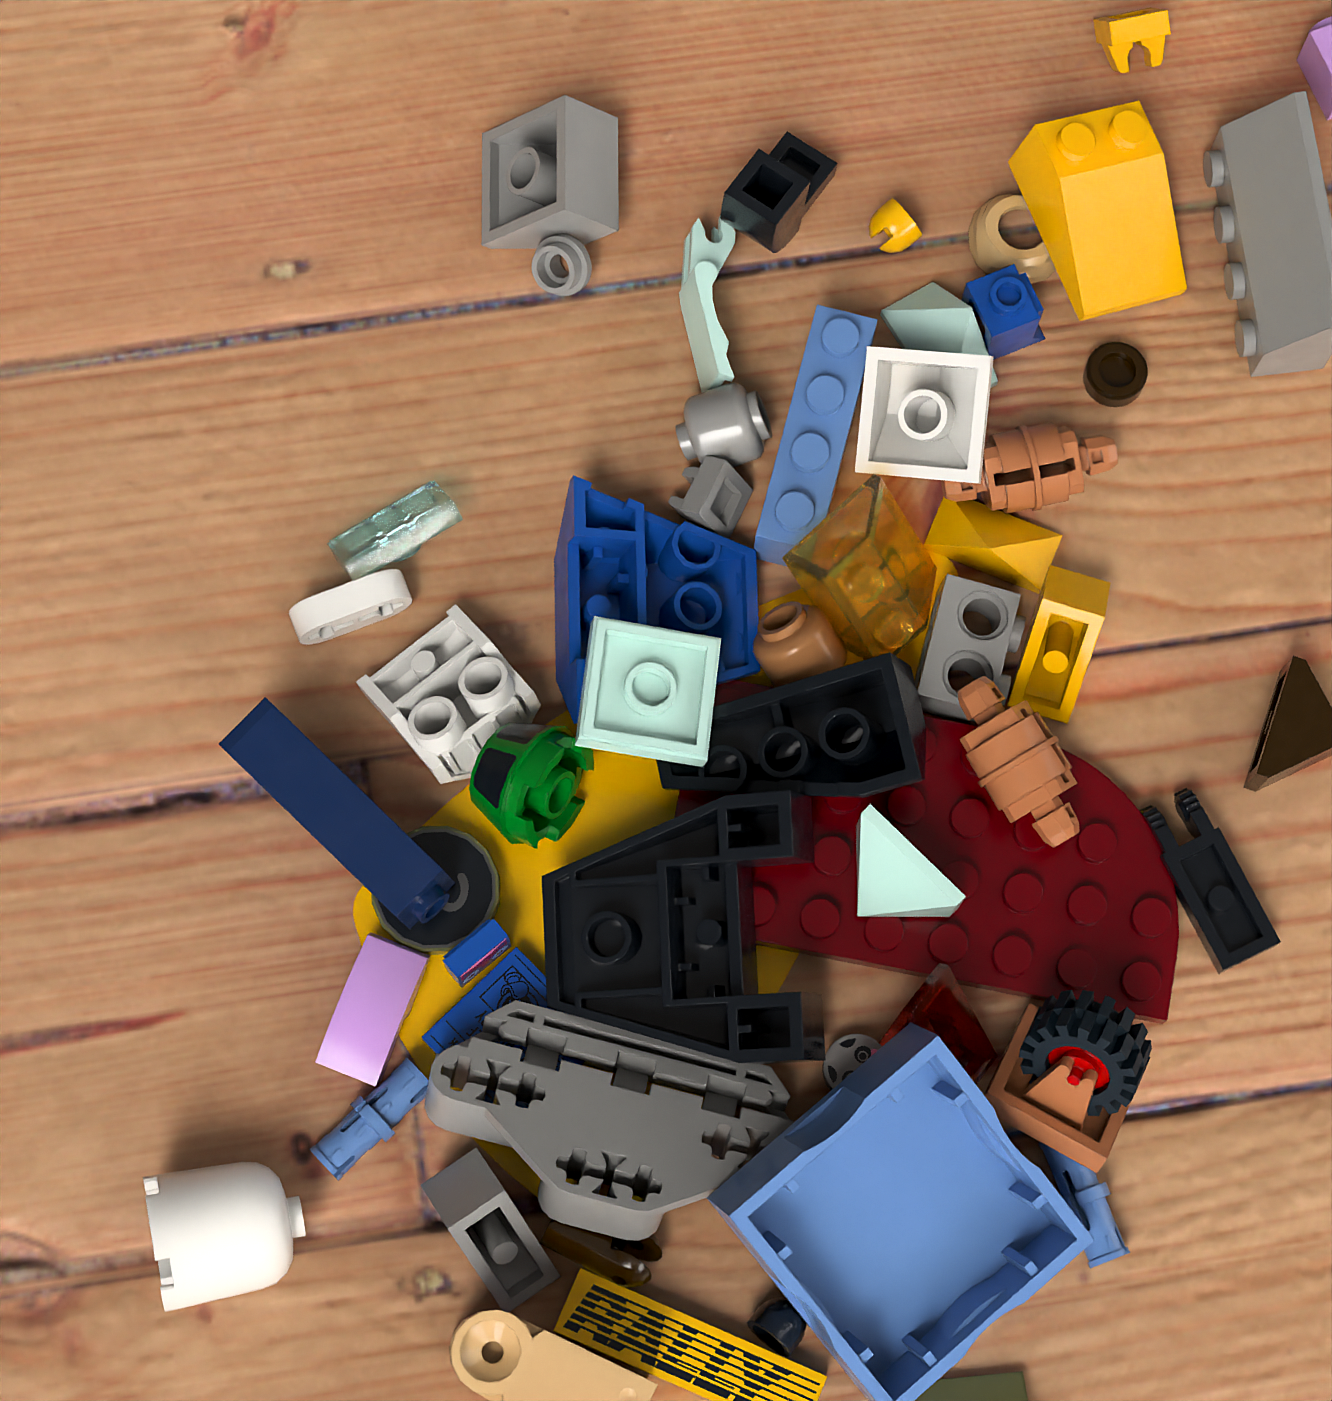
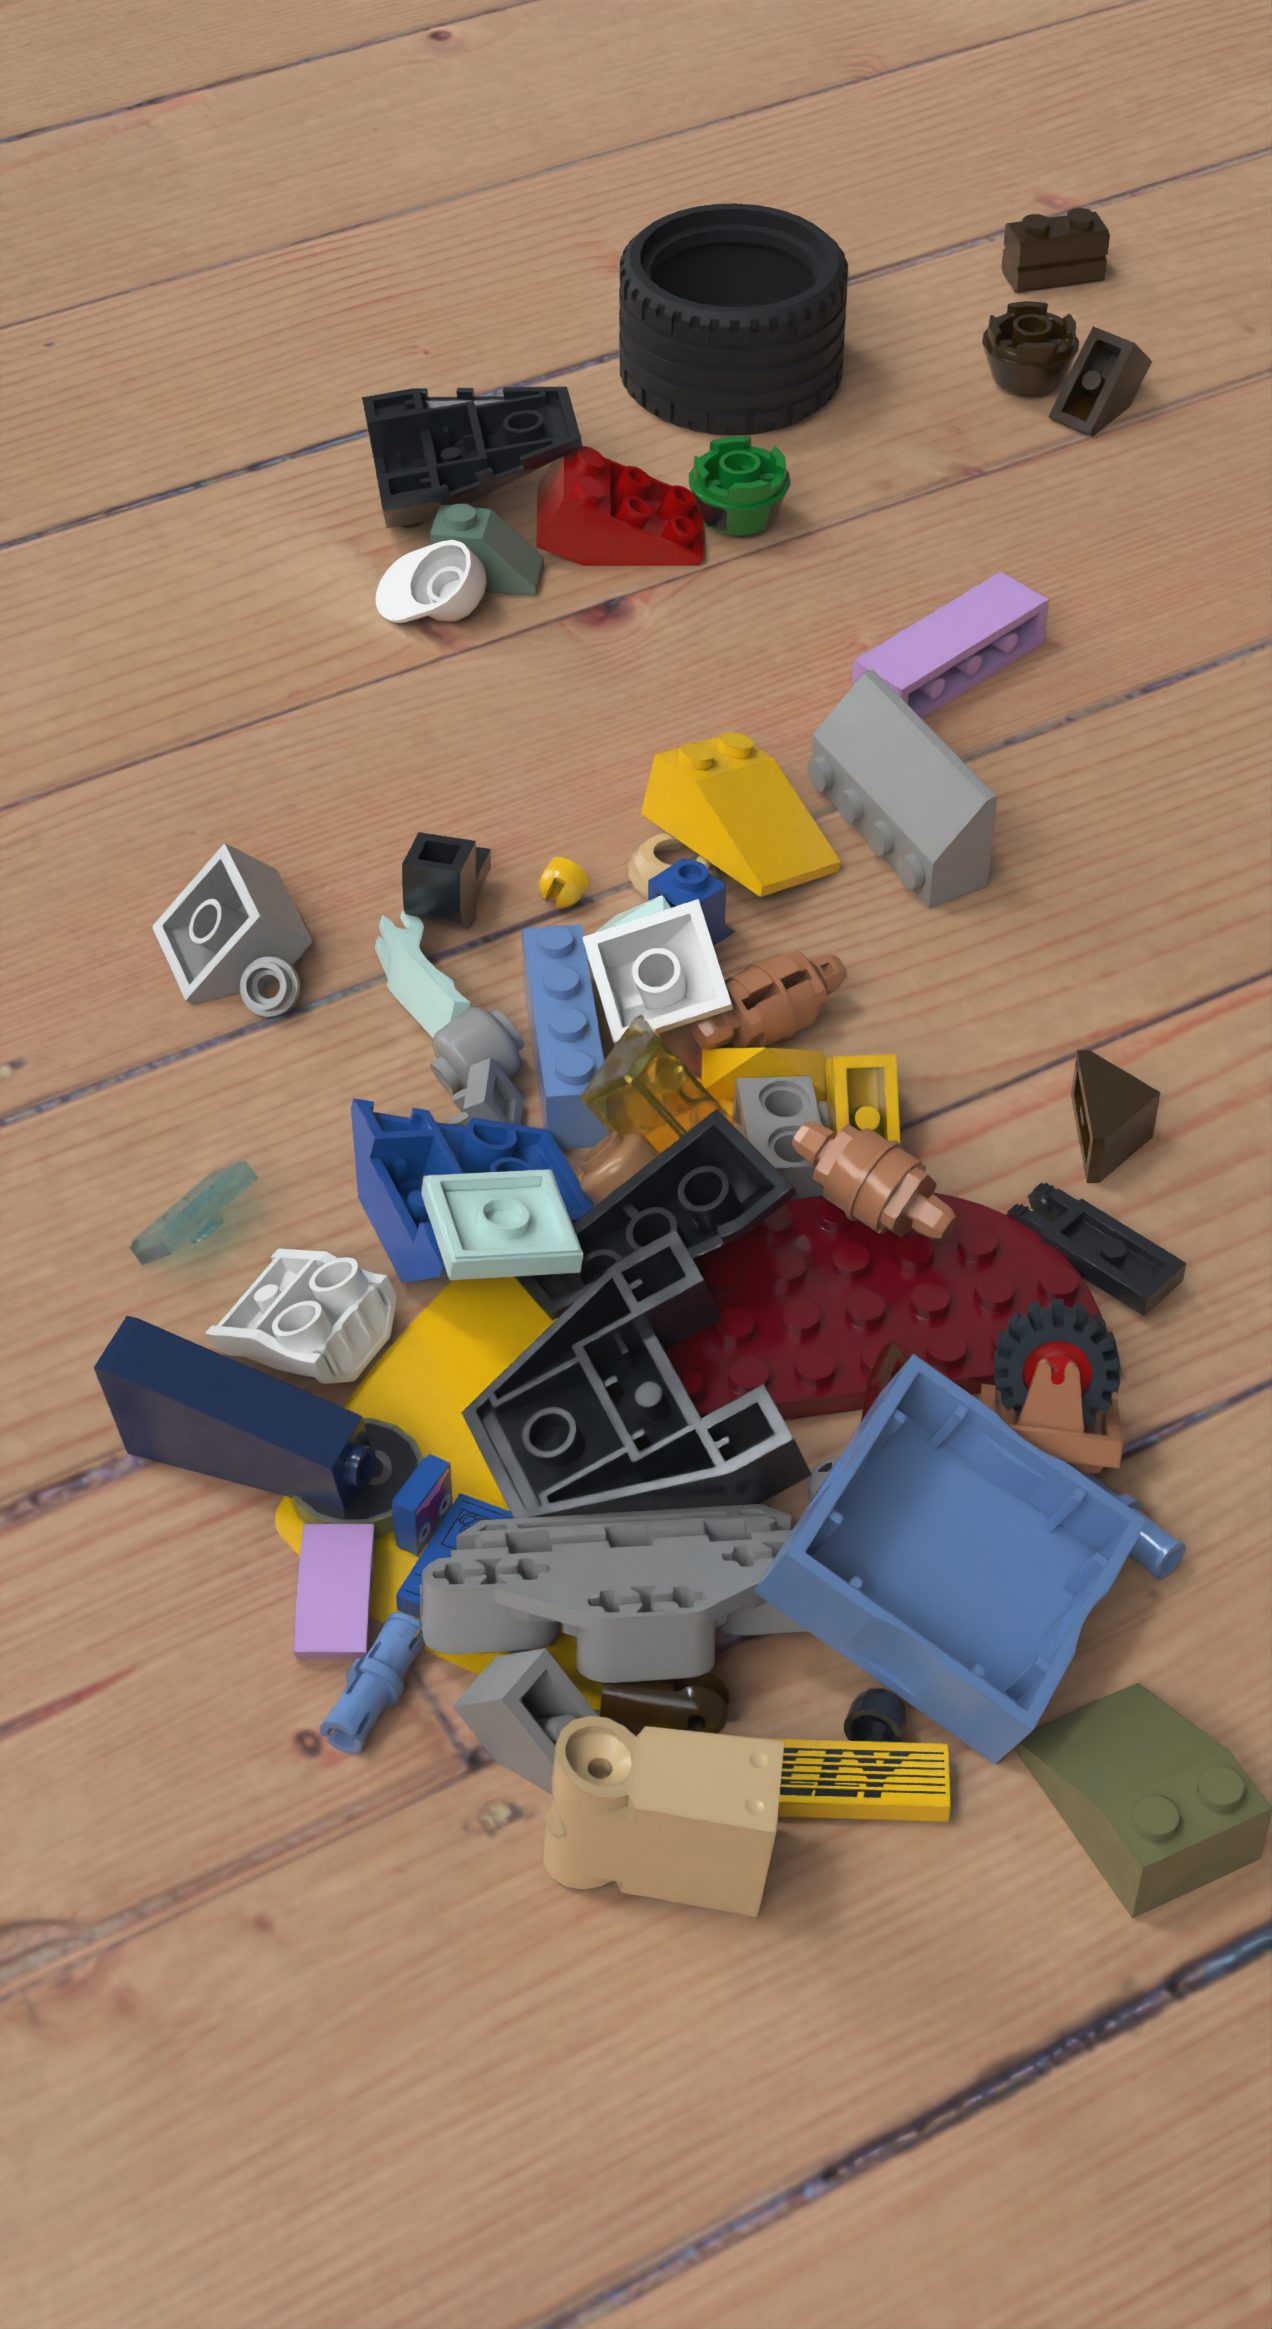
camera: 20 degrees left, 30 degrees down
(220, 1231) = (252, 1809): white cylinder -> none
(350, 606) = (174, 1279): white beam -> none
(530, 781) = (414, 1343): green cone -> none
(896, 876) = (809, 1301): light aqua slope -> none
(1115, 374) = (810, 931): dark brown tile -> none
(1143, 26) = (702, 705): yellow tile -> none

